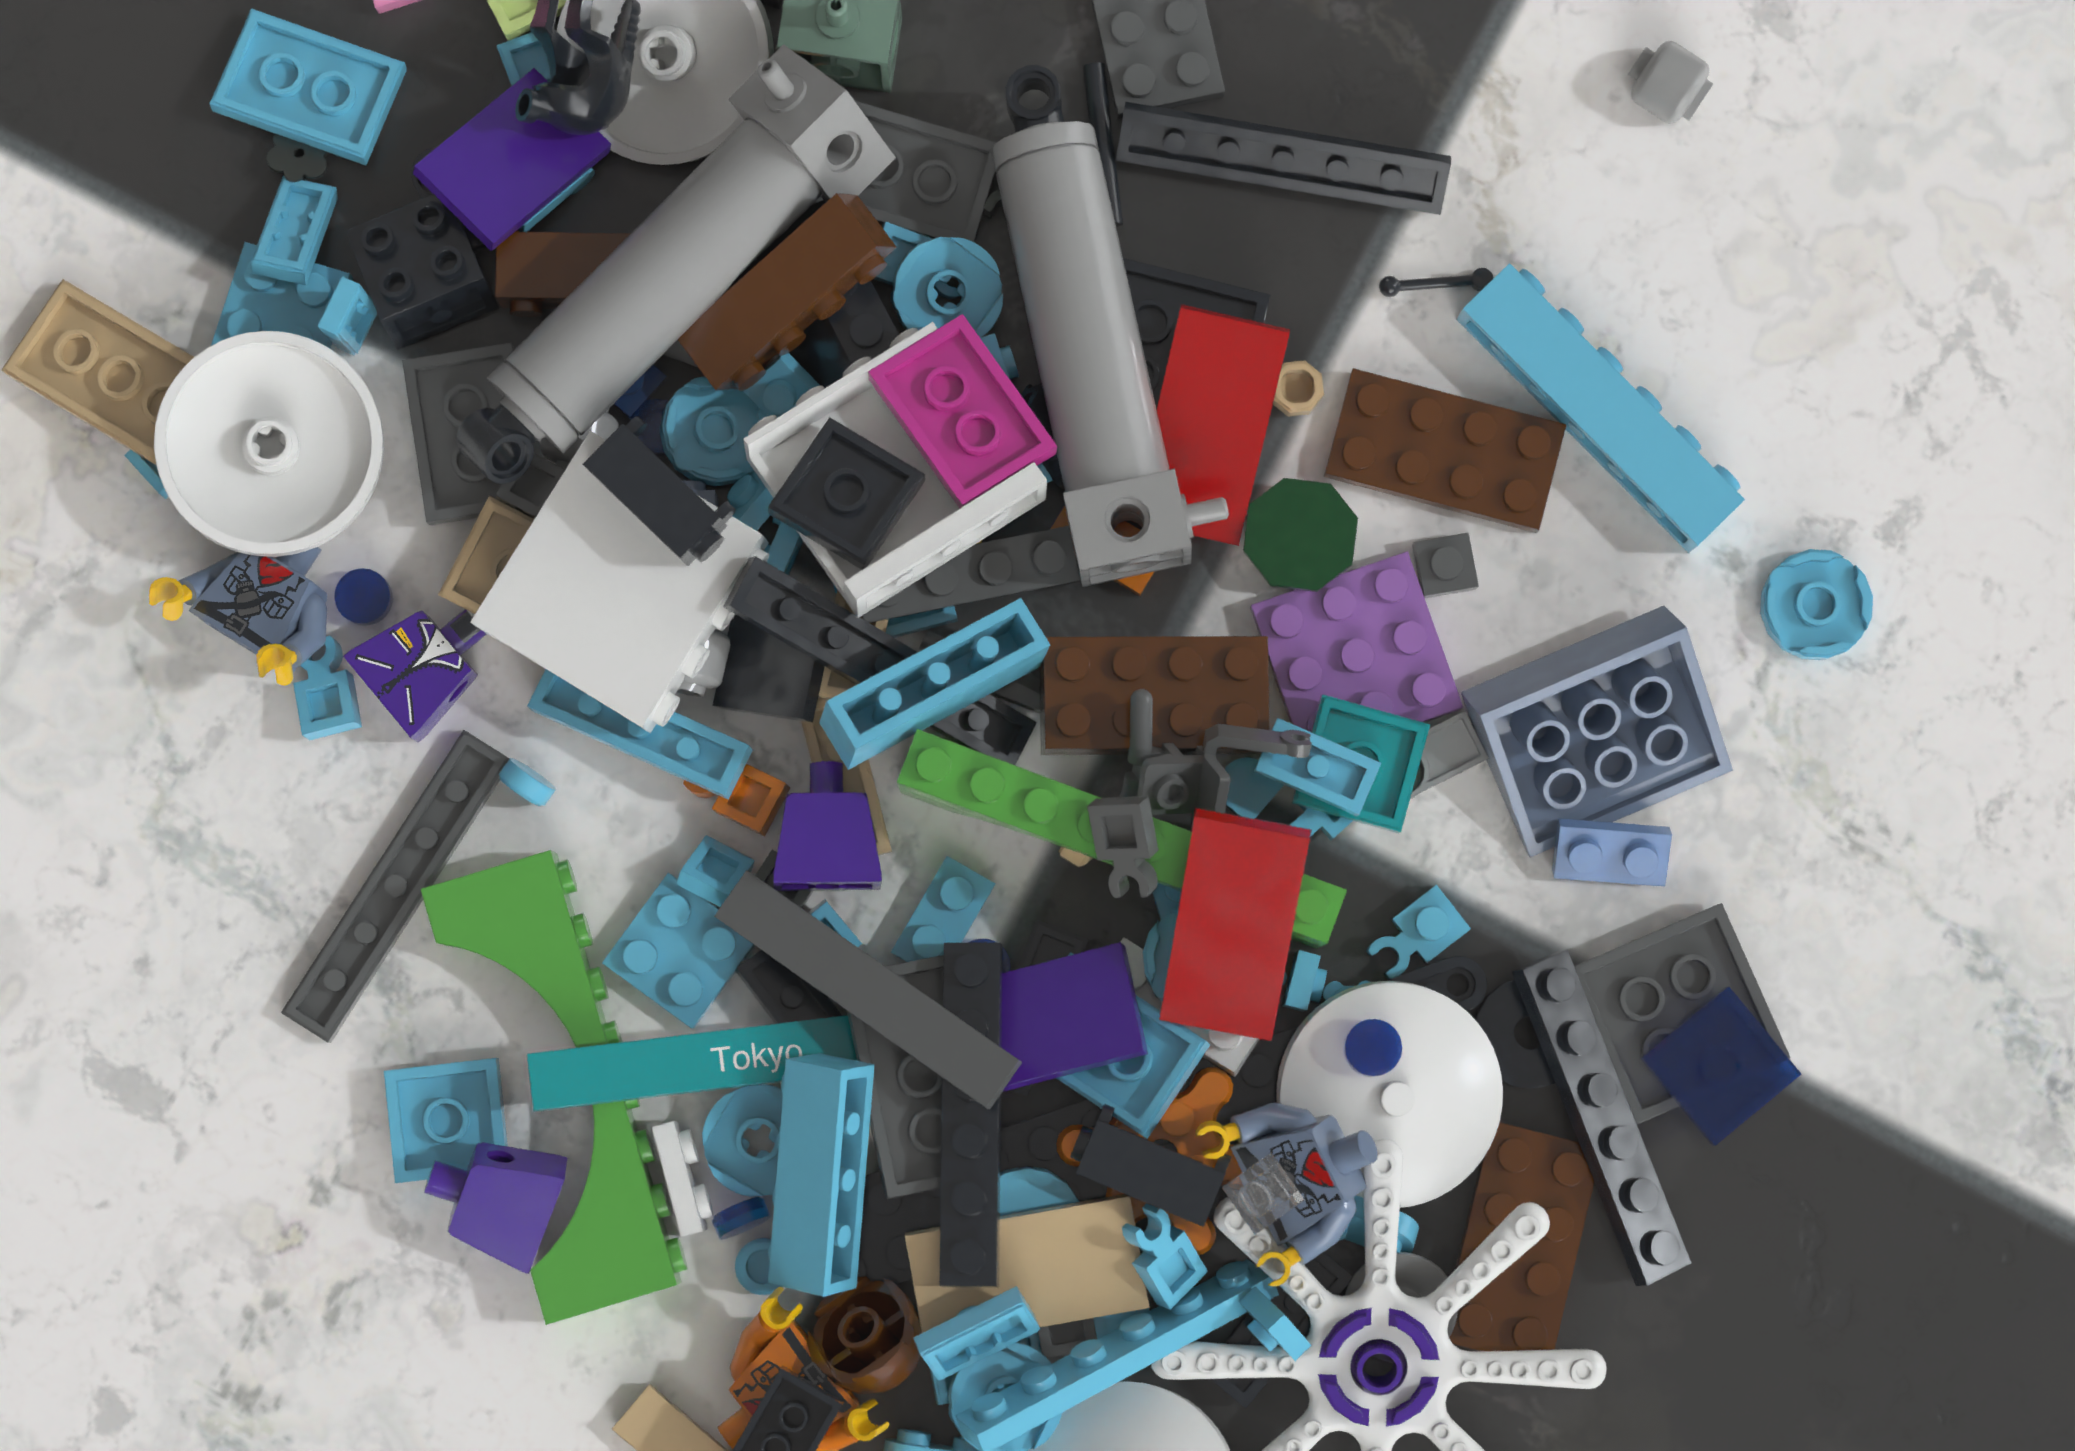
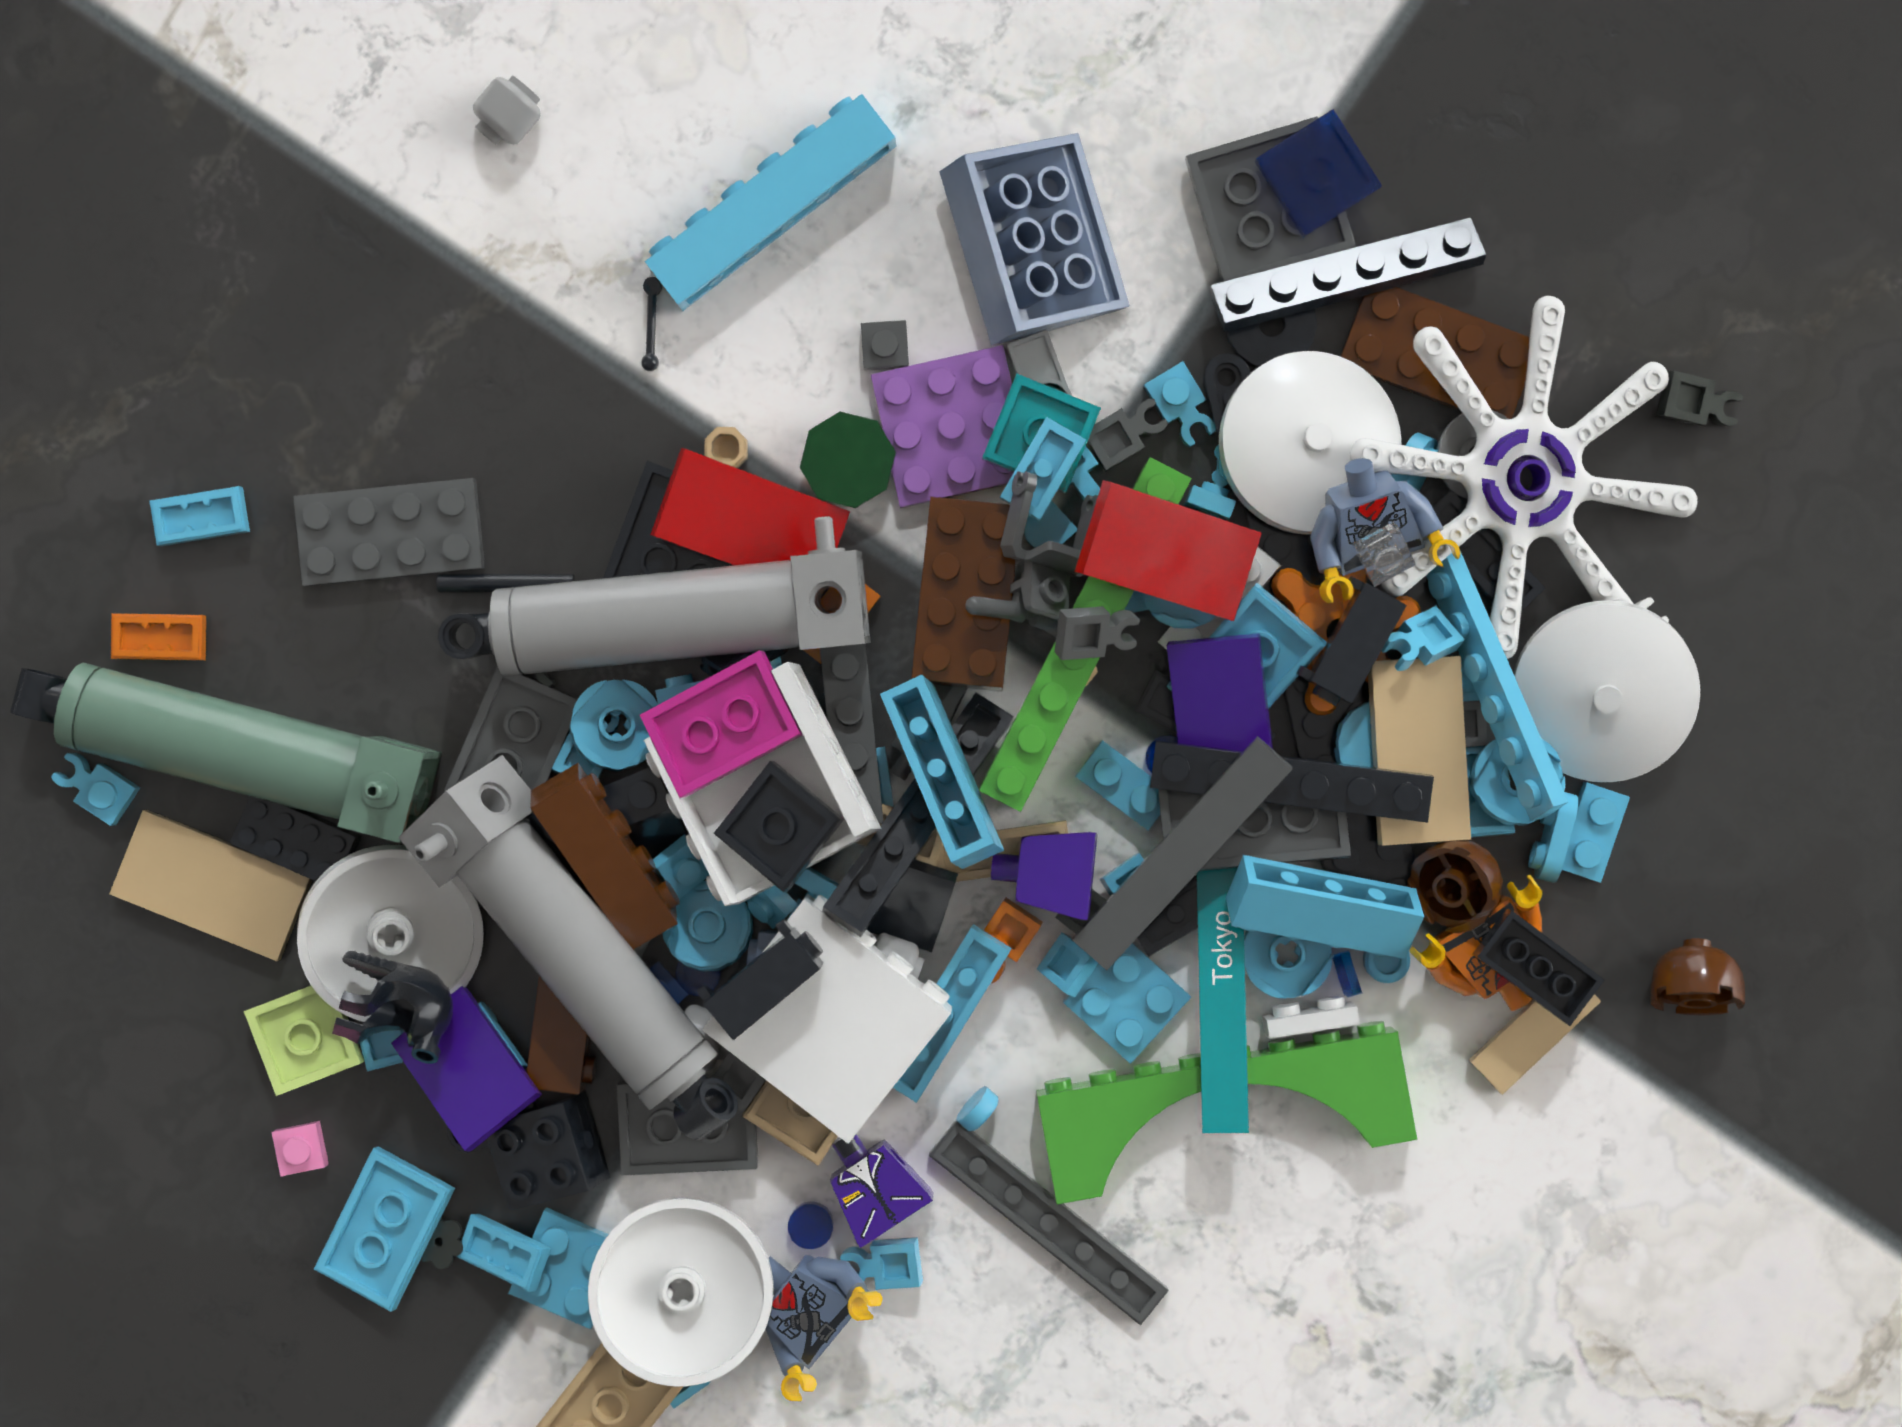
camera: 80 degrees left, 5 degrees up
(348, 316) = (581, 1216): medium azure plate -> none
(443, 1114) = (1242, 1200): medium azure plate -> none
(501, 1200) = (1313, 1164): dark purple torso -> none
(977, 1333) = (1467, 796): medium azure plate -> none
(1272, 1326) = (1487, 559): medium azure plate -> none
(1283, 158) = (534, 436): black plate -> none
(1367, 859) = (1118, 437): none -> dark grey plate
(1372, 1048) = (1276, 451): clear blue tile -> none
(1445, 450) = (790, 333): reddish brown plate -> none
(1611, 852) = (1134, 239): medium blue plate -> none
(1816, 604) = (951, 47): medium azure tile -> none

